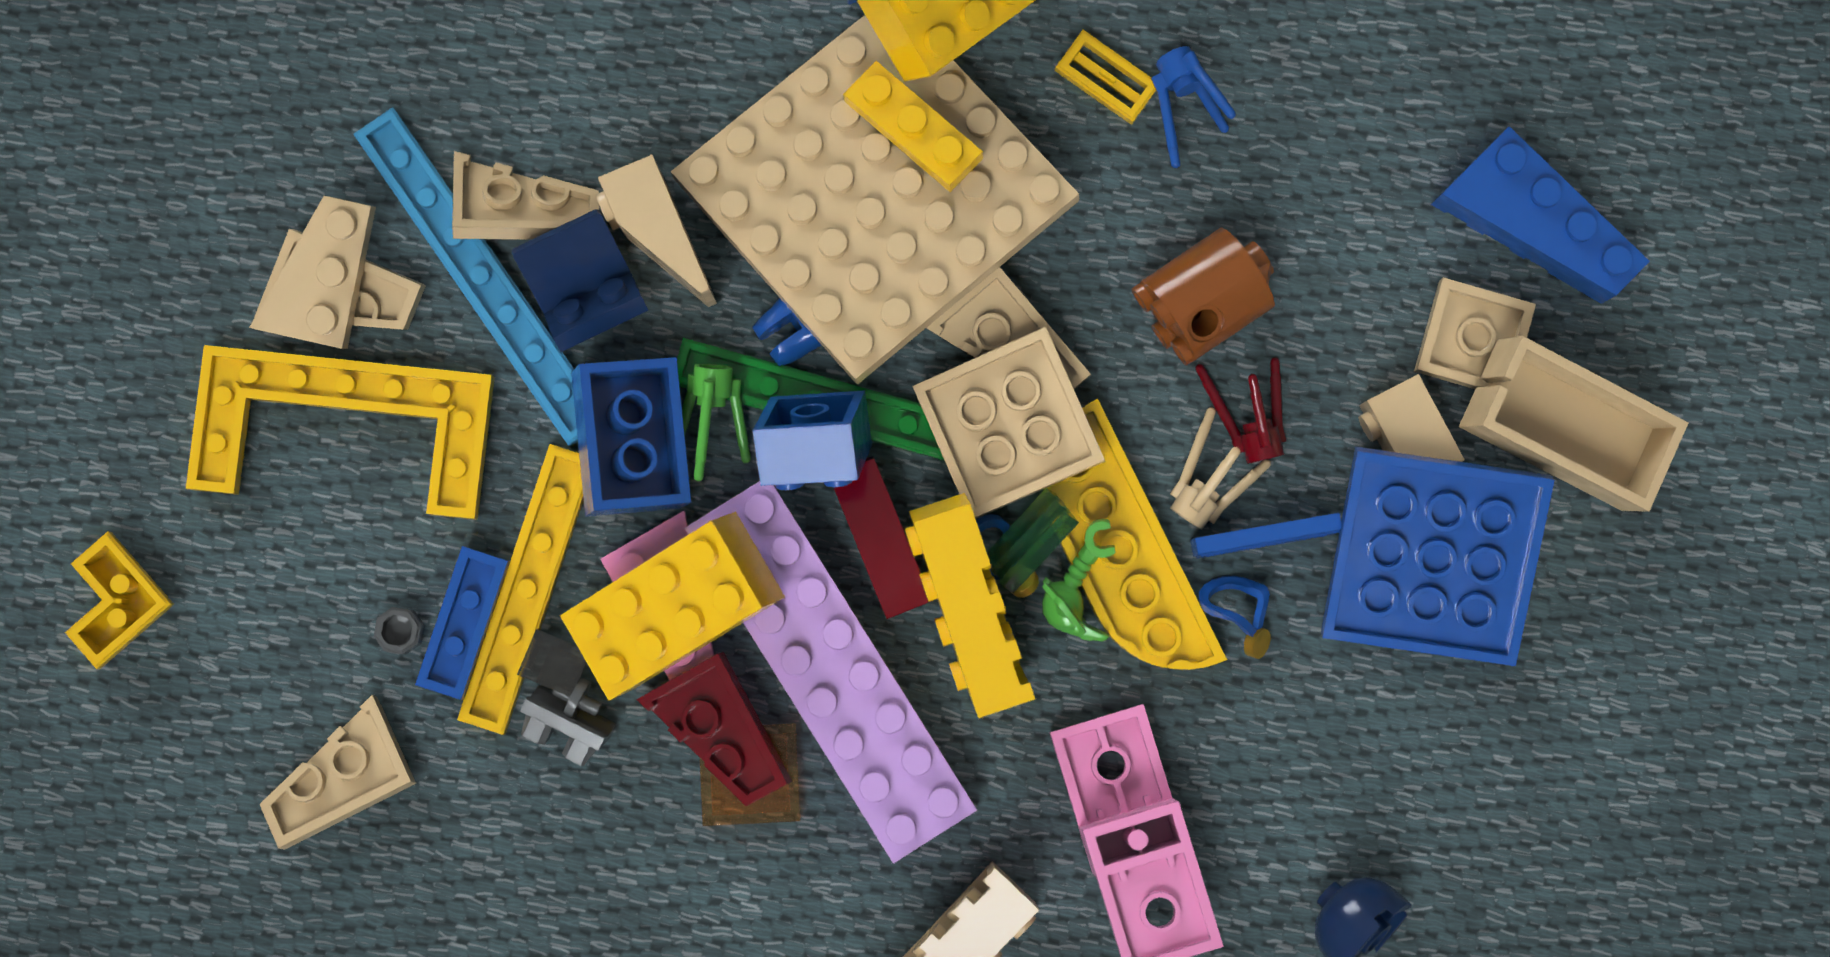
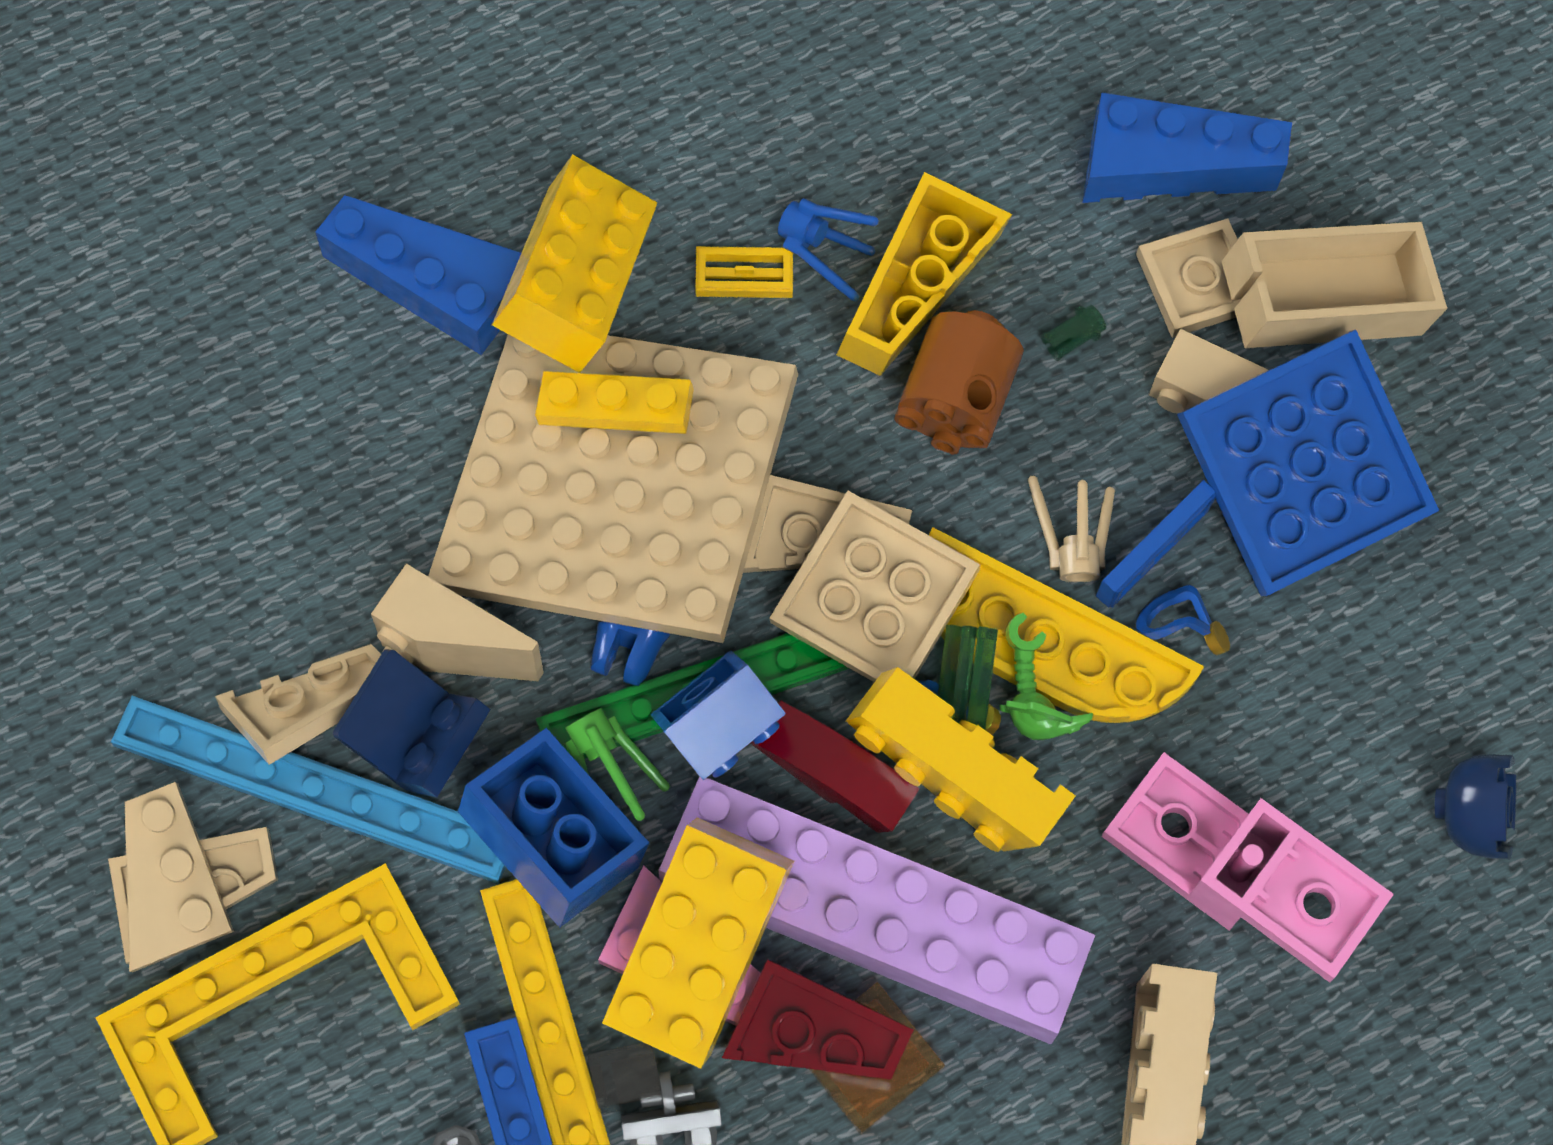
camera: 40 degrees left, 15 degrees down
(1256, 171) = (920, 269): none -> yellow wedge
(1261, 438) = (1089, 466): dark red plant -> none
(1336, 313) = (1074, 332): none -> clear green pin

